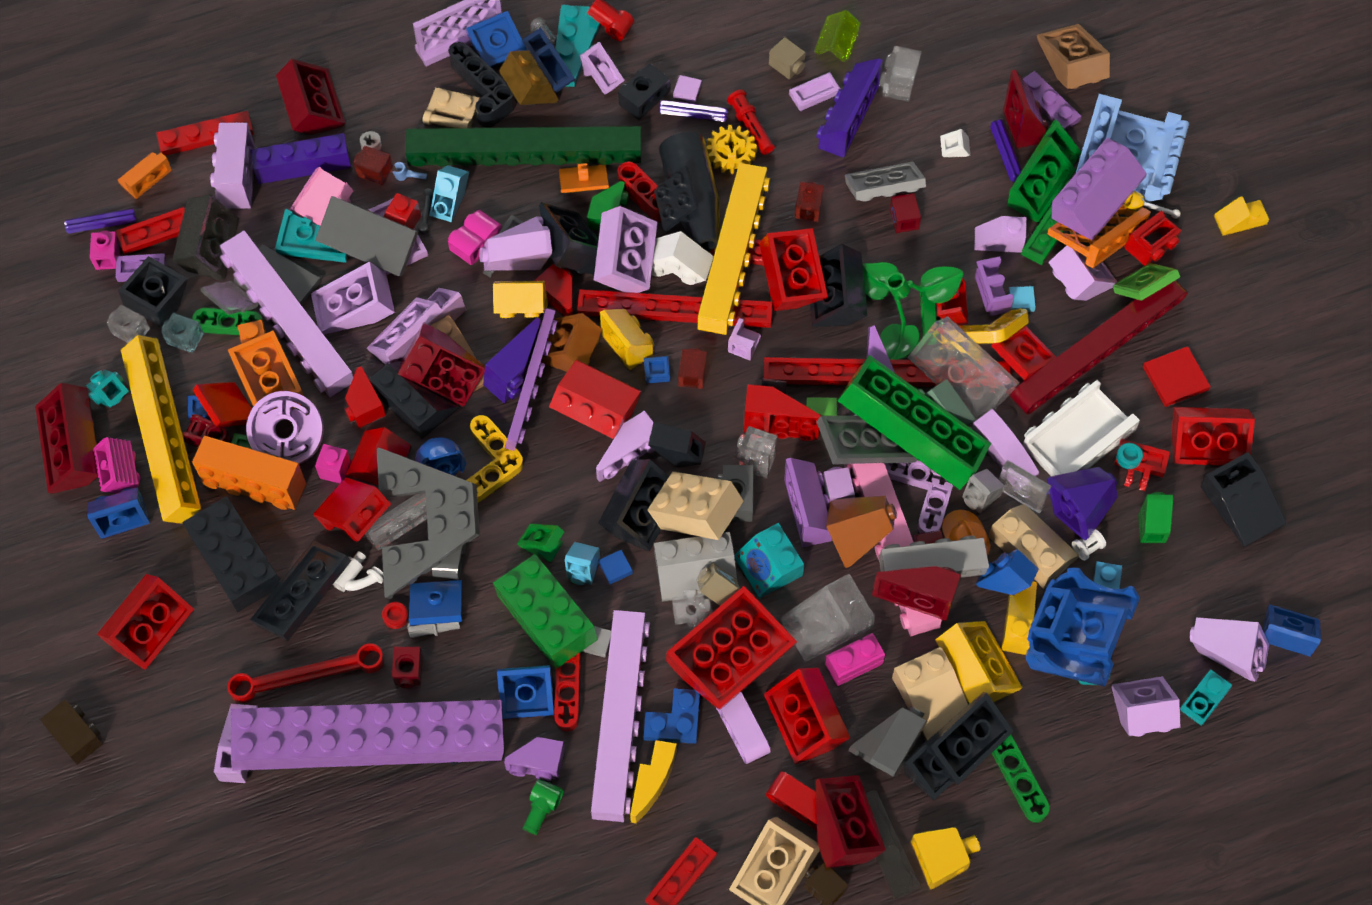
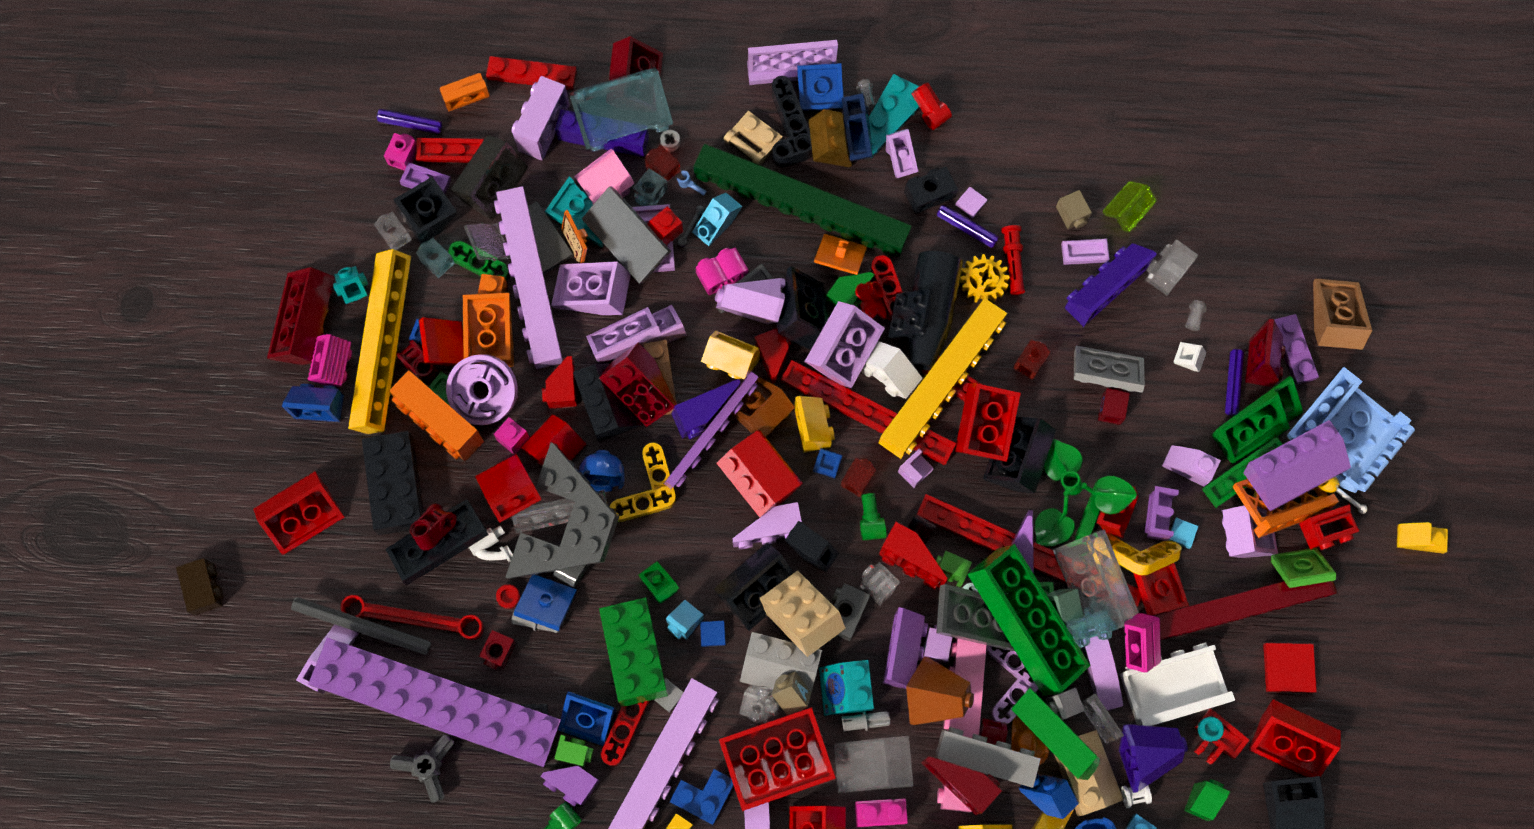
camera: 20 degrees right, 10 degrees up
(256, 699) = (361, 625): none -> dark grey axle
(291, 574) = (431, 526): none -> dark red piece
(313, 121) = (621, 108): none -> clear light blue windscreen
(315, 259) = (575, 238): none -> piece
(367, 183) = (650, 180): none -> clear light blue brick
(392, 811) = (414, 765): none -> dark grey bush
(526, 729) = (573, 752): none -> bright green brick
(631, 199) = (871, 295): none -> red plate
(724, 406) = (872, 524): none -> green pin
(800, 584) = (865, 721): none -> light grey axle
(942, 101) = (1195, 316): none -> clear pin
(975, 404) = (1091, 625): none -> clear light blue hips
(989, 510) = (1056, 735): none -> green brick
(1030, 400) = (1142, 642): none -> dark pink brick

